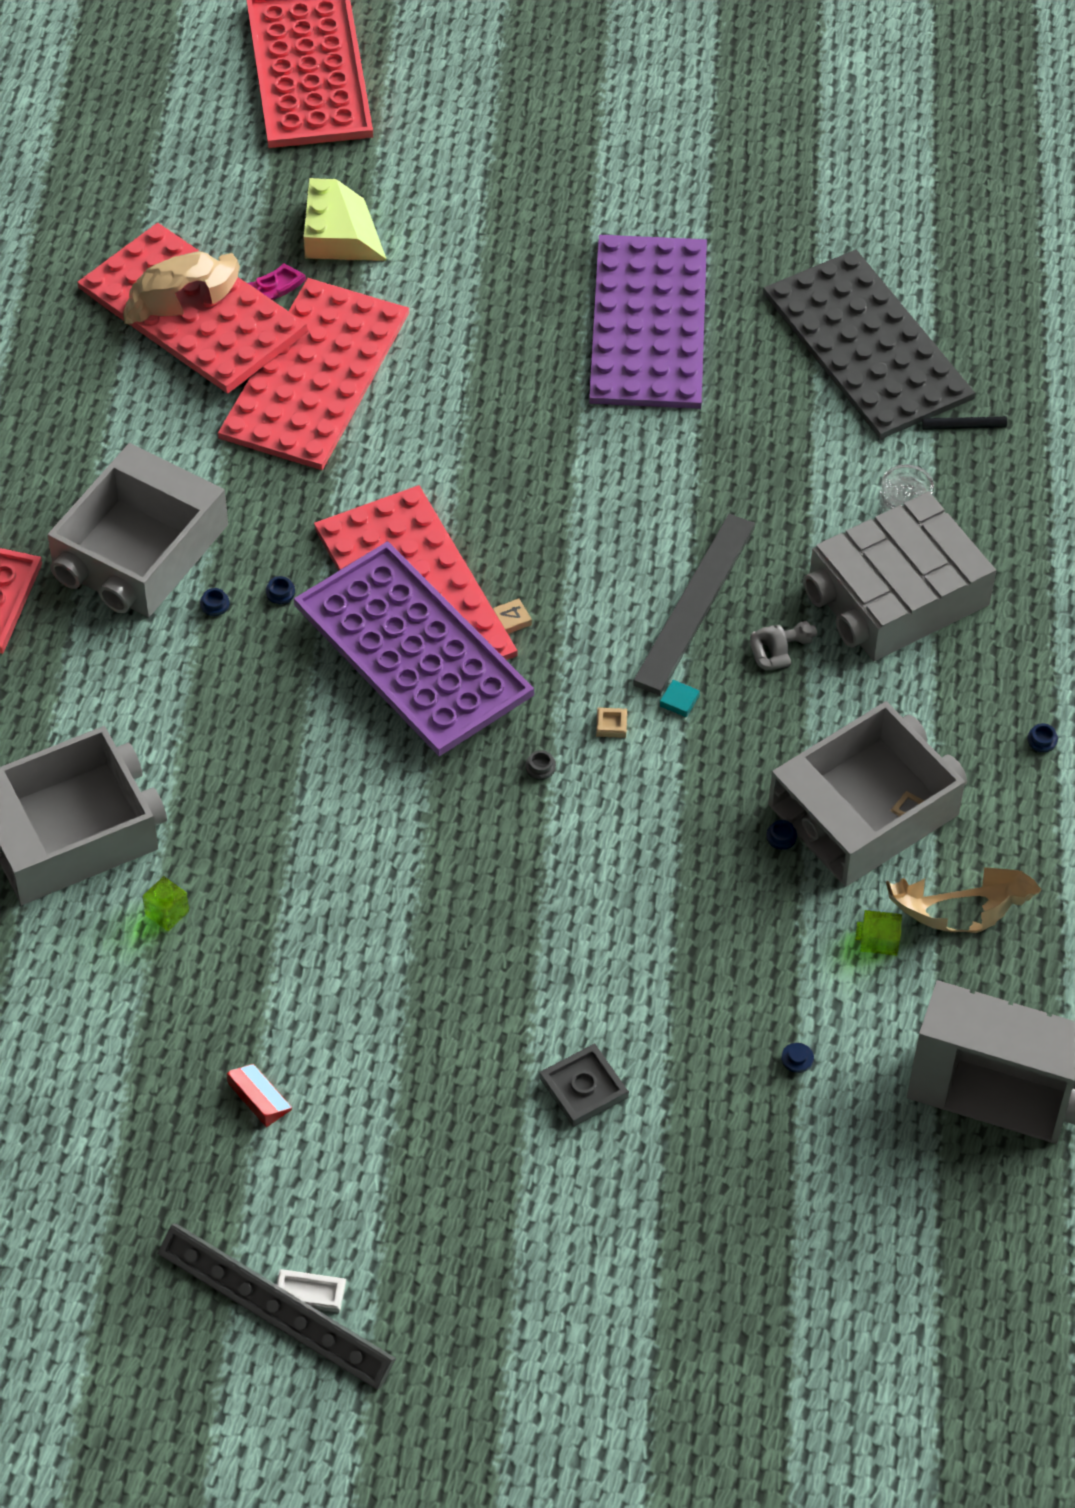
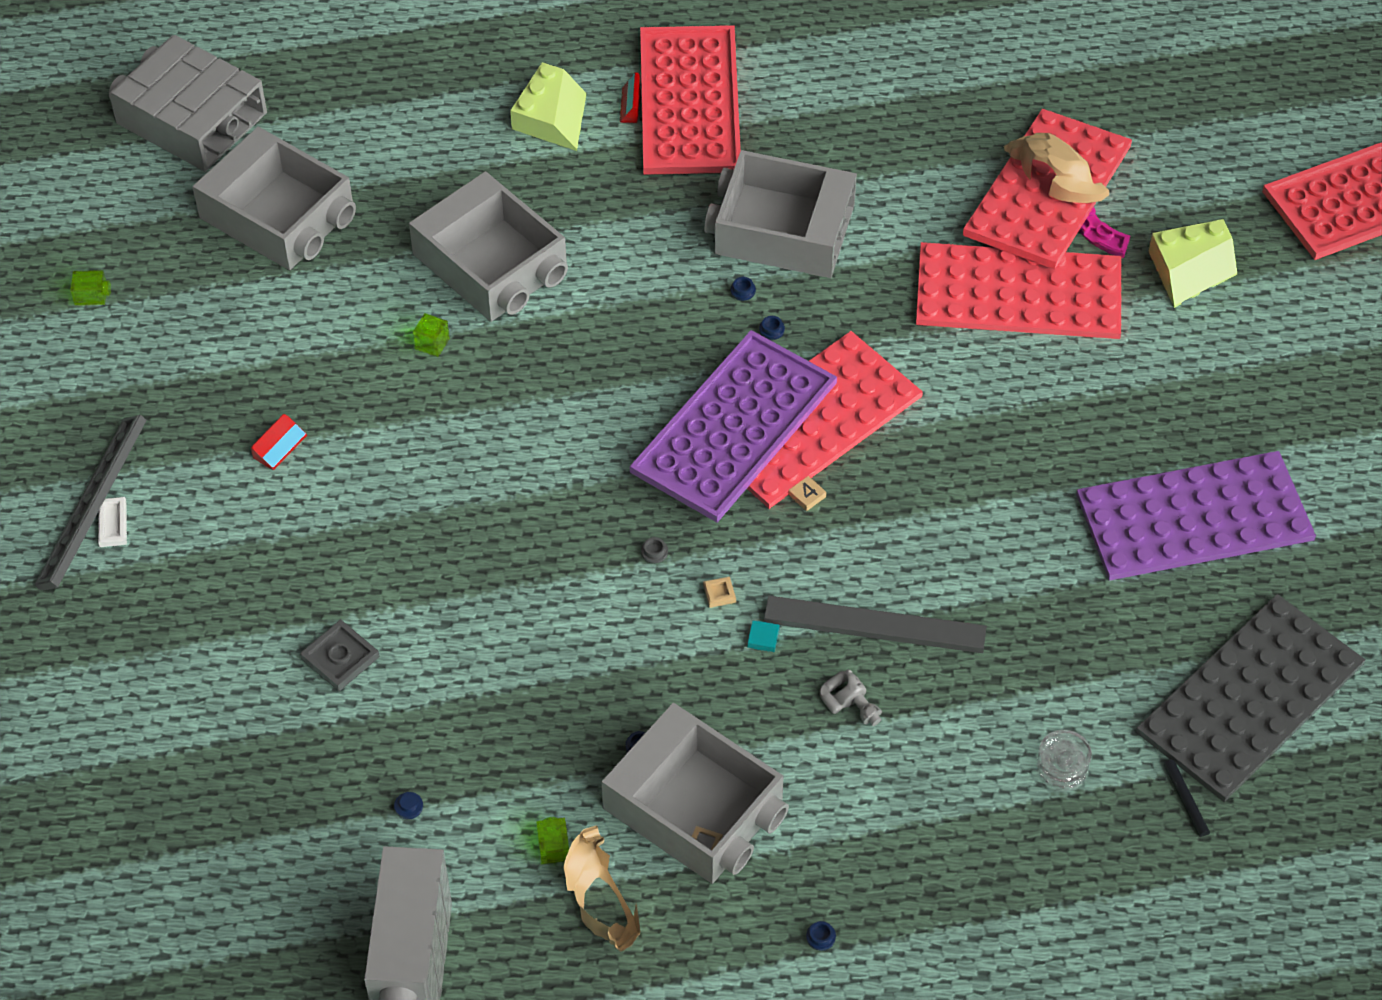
camera: 75 degrees right, 0 degrees up
(899, 577) = (953, 770): light grey brick -> none

